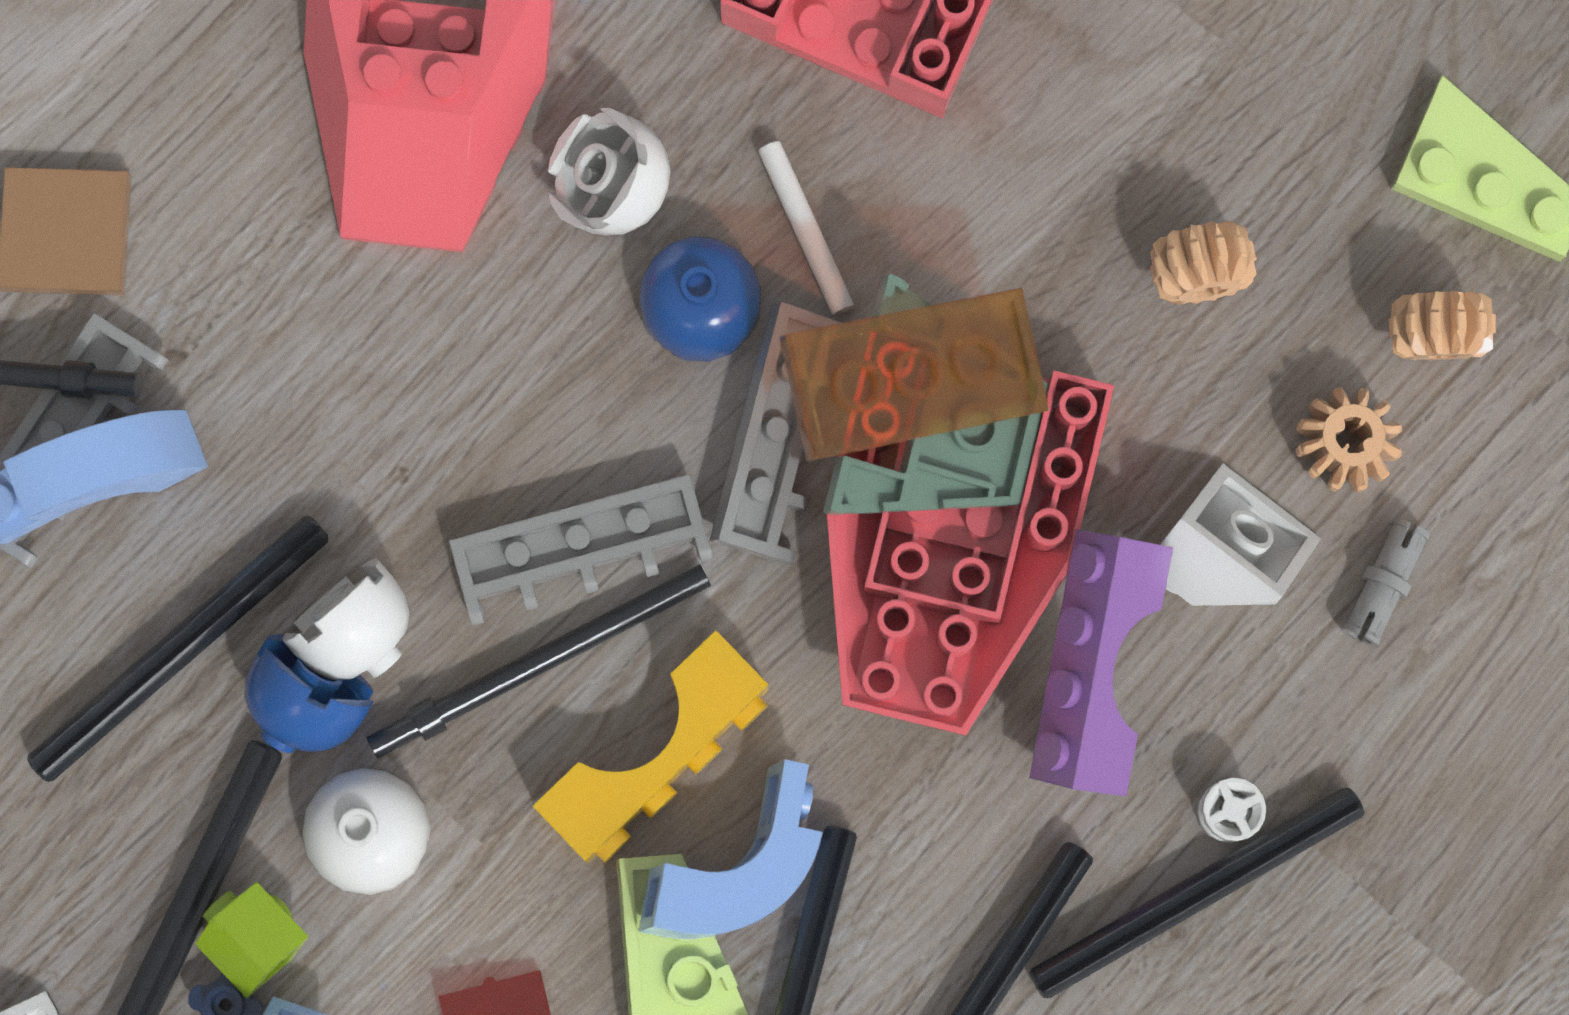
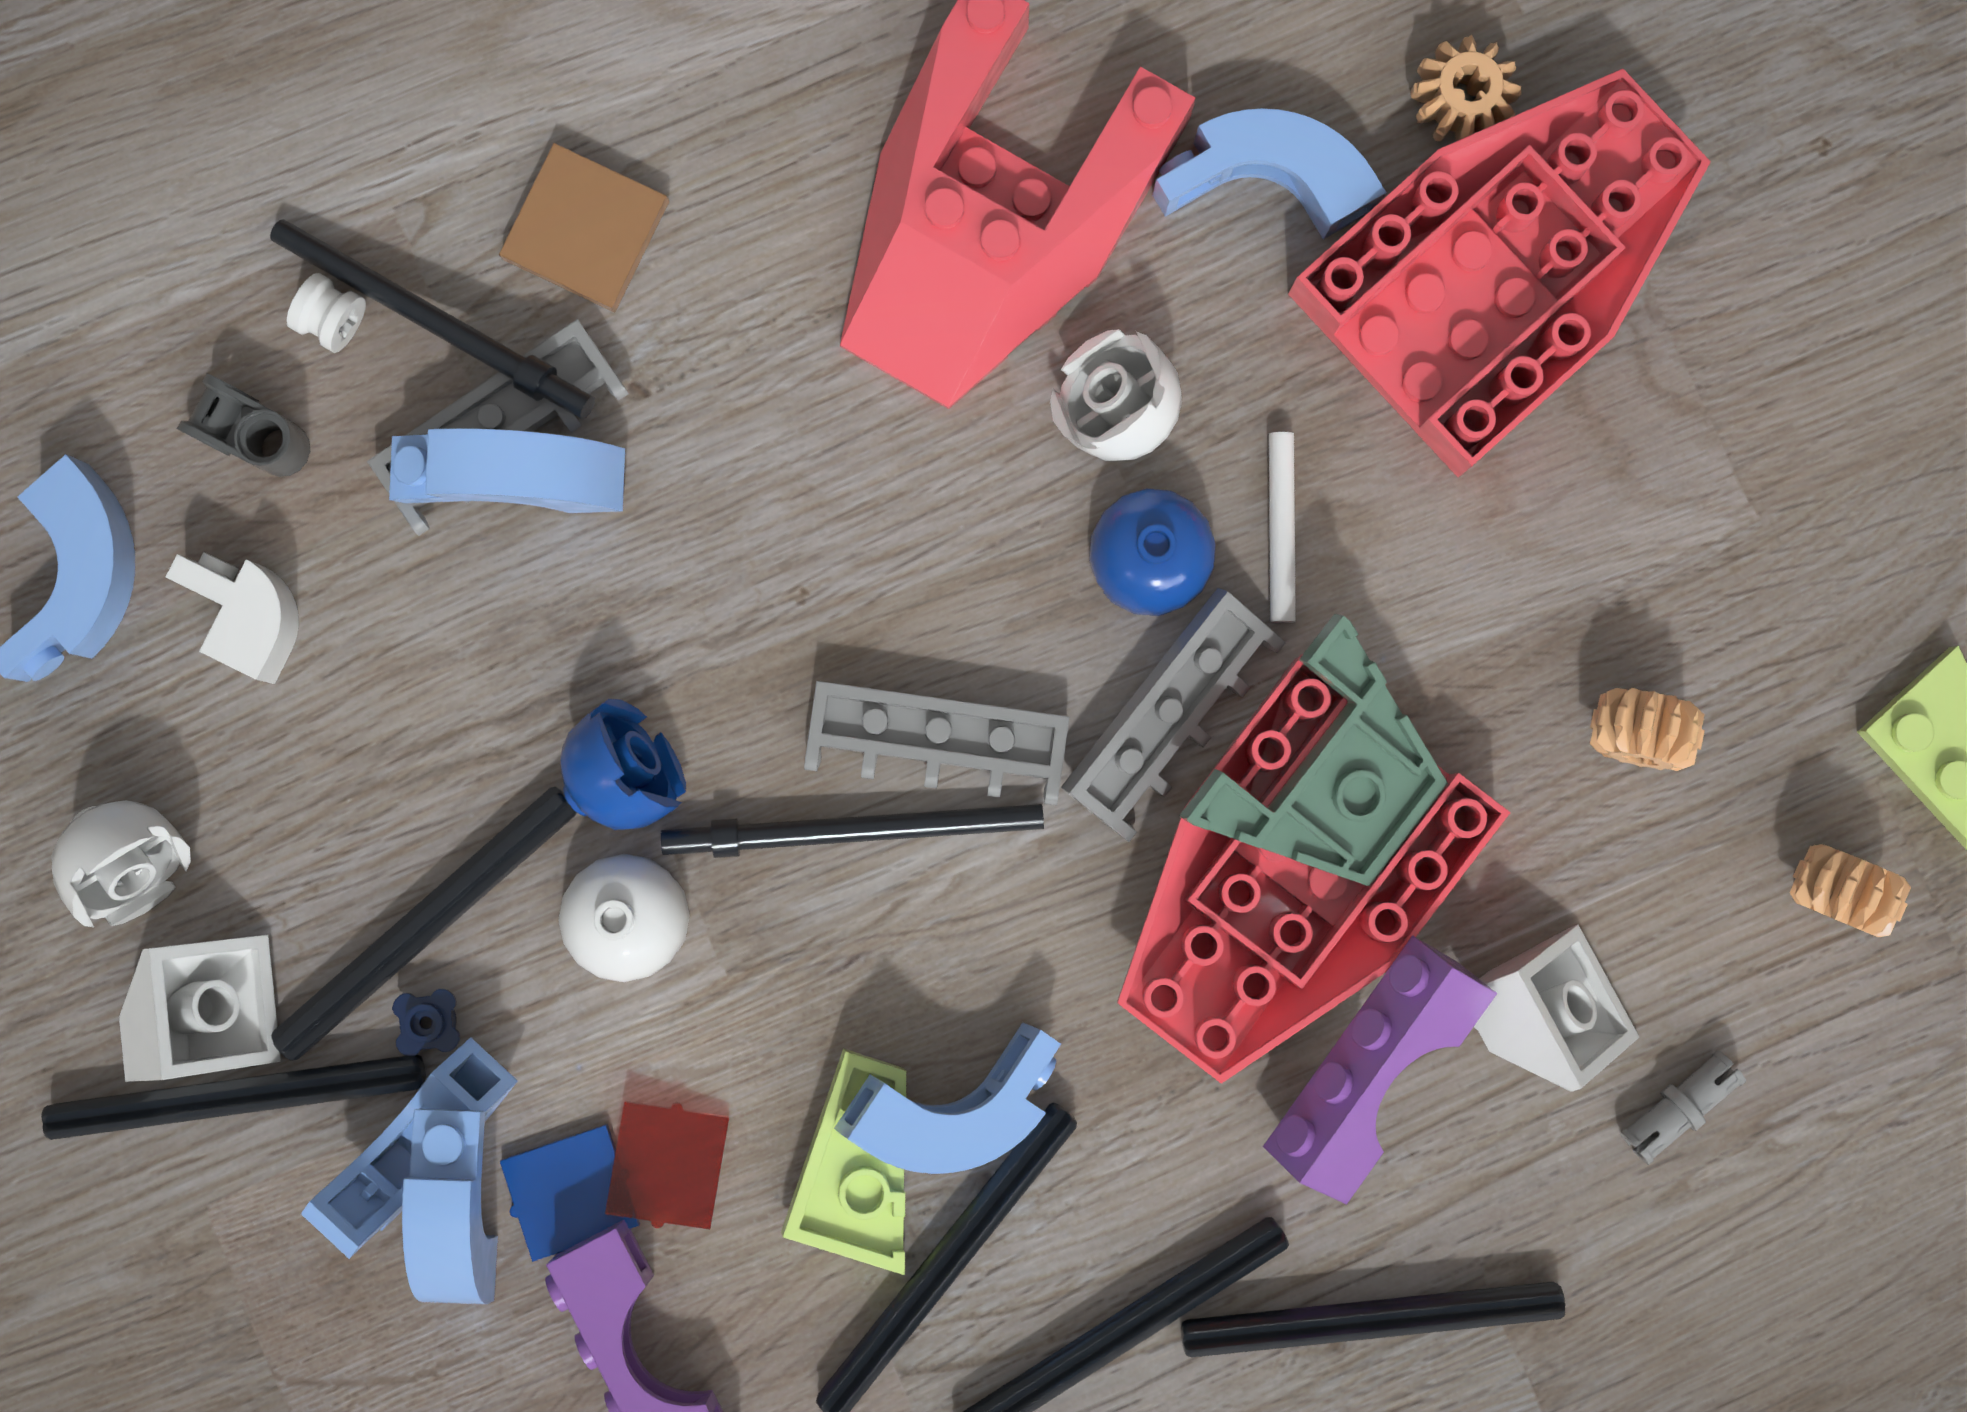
camera: 30 degrees right, 5 degrees up
(177, 649) = (523, 670): black axle -> none
(250, 937) = (473, 972): lime brick -> none
(353, 626) = (691, 723): white cylinder -> none
(596, 805) = (846, 990): yellow arch -> none
(913, 374) = (1324, 723): clear orange tile -> none
(1241, 805) = (1448, 1267): white wheel -> none
(1330, 422) = (1702, 981): light nougat gear -> none

